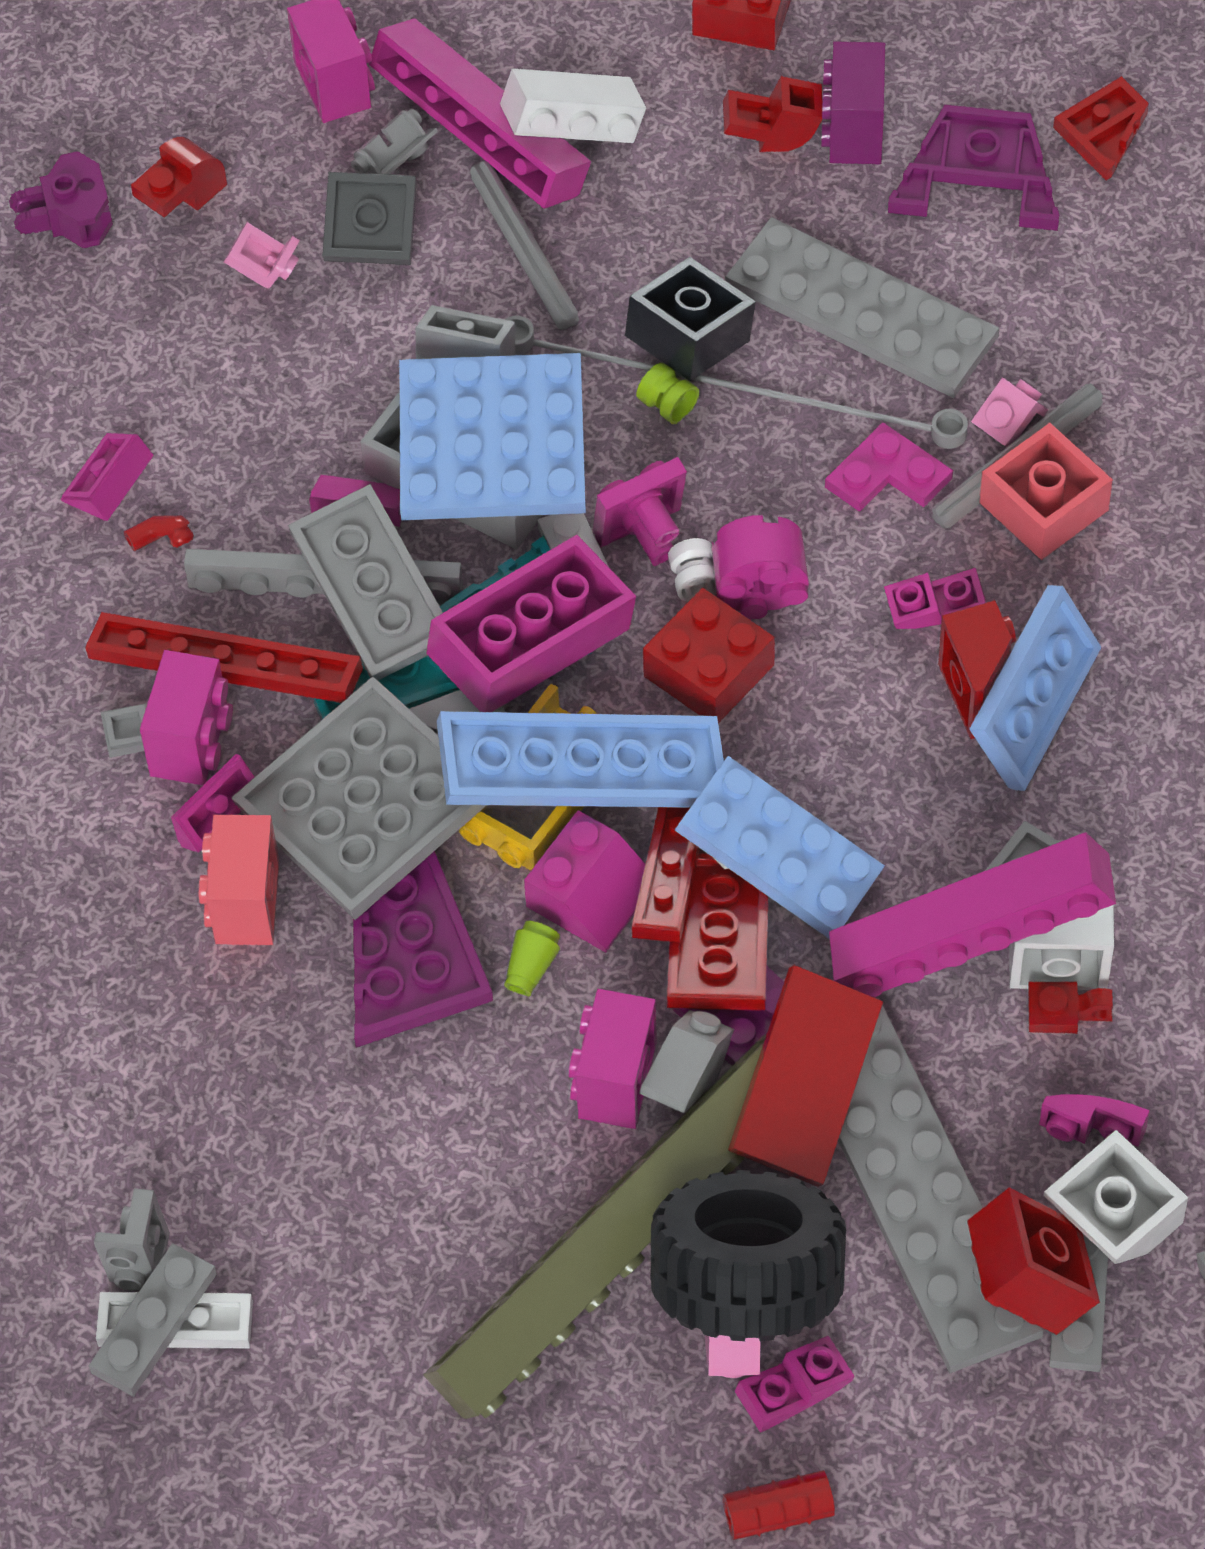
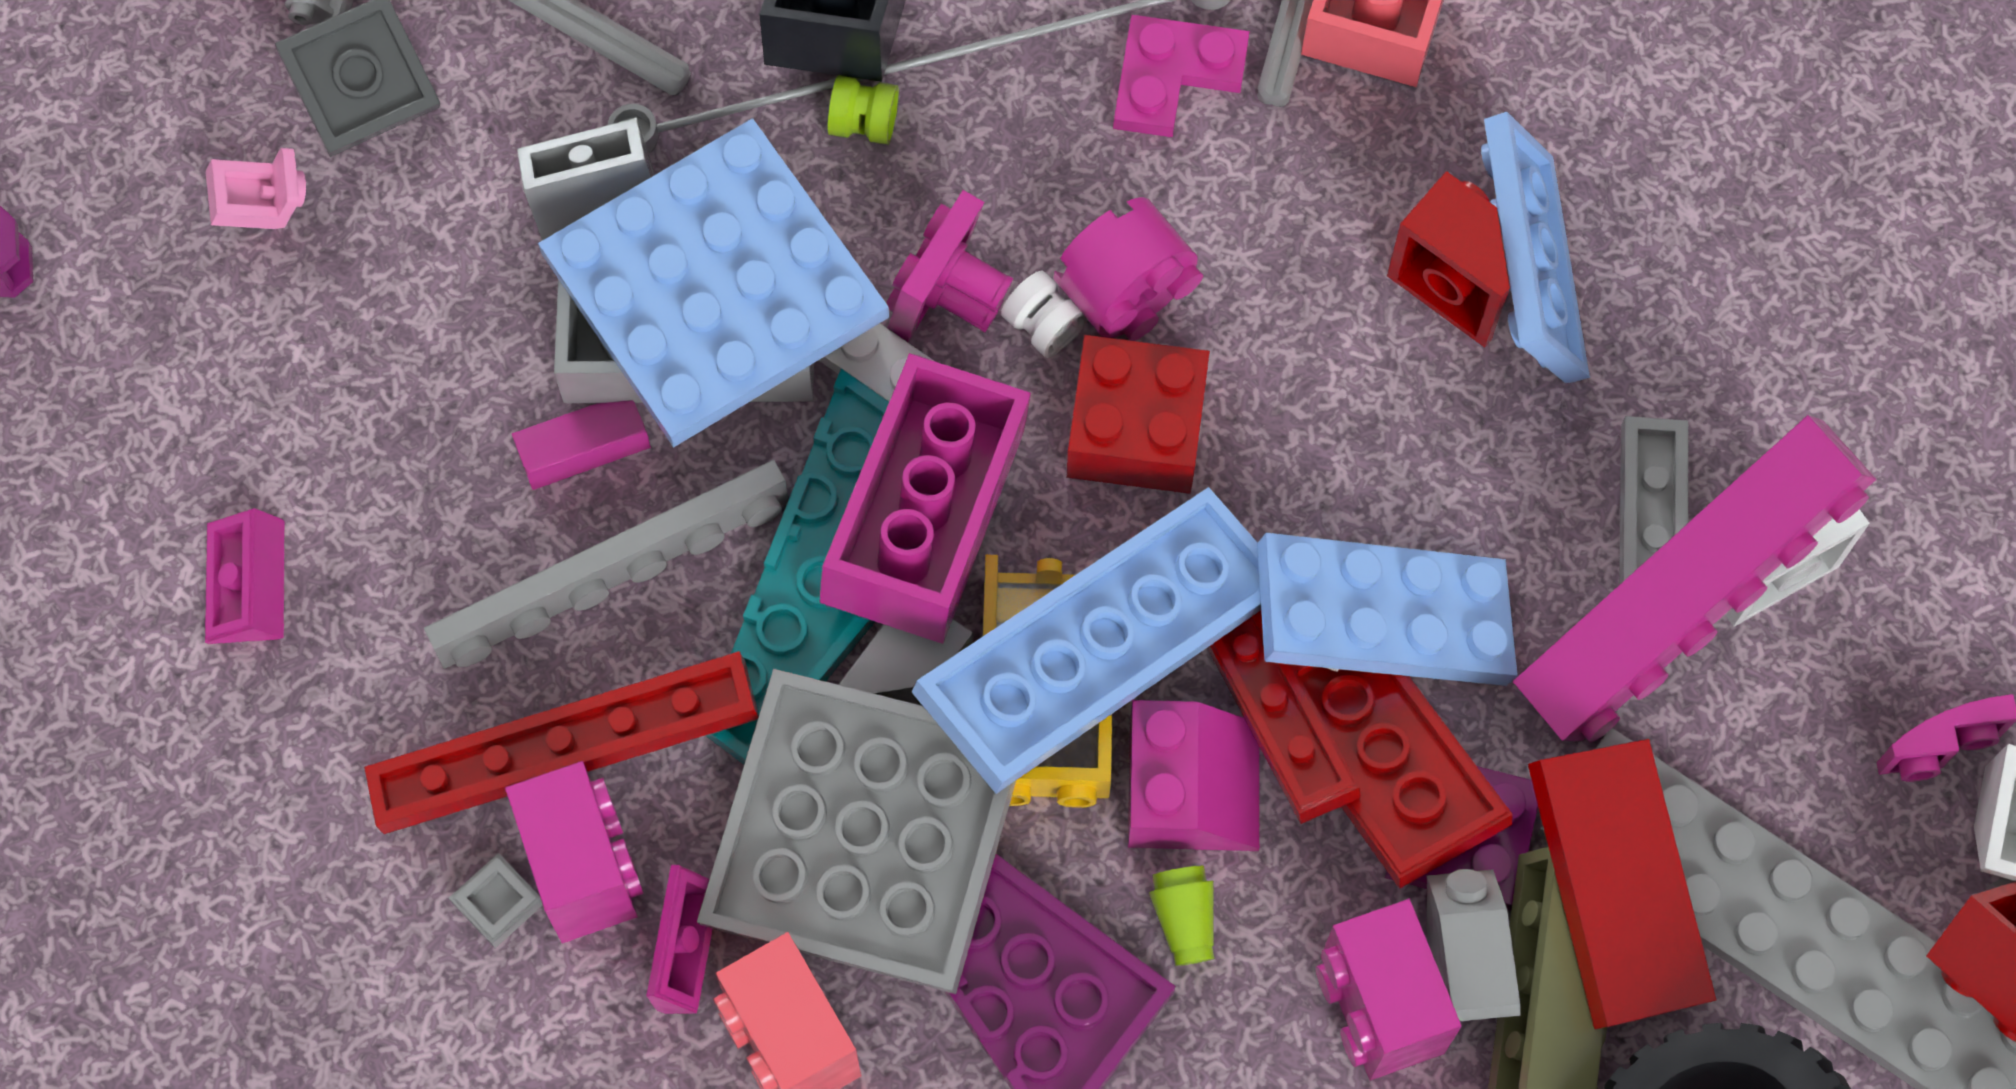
camera: 35 degrees left, 10 degrees up
(157, 527) = (360, 610): red arm -> none
(180, 175) = (85, 143): red brick -> none
(368, 580) = (689, 547): light grey plate -> none
(922, 603) = (1337, 199): dark pink slope -> none
(1059, 1007) = (1810, 621): red plate -> none

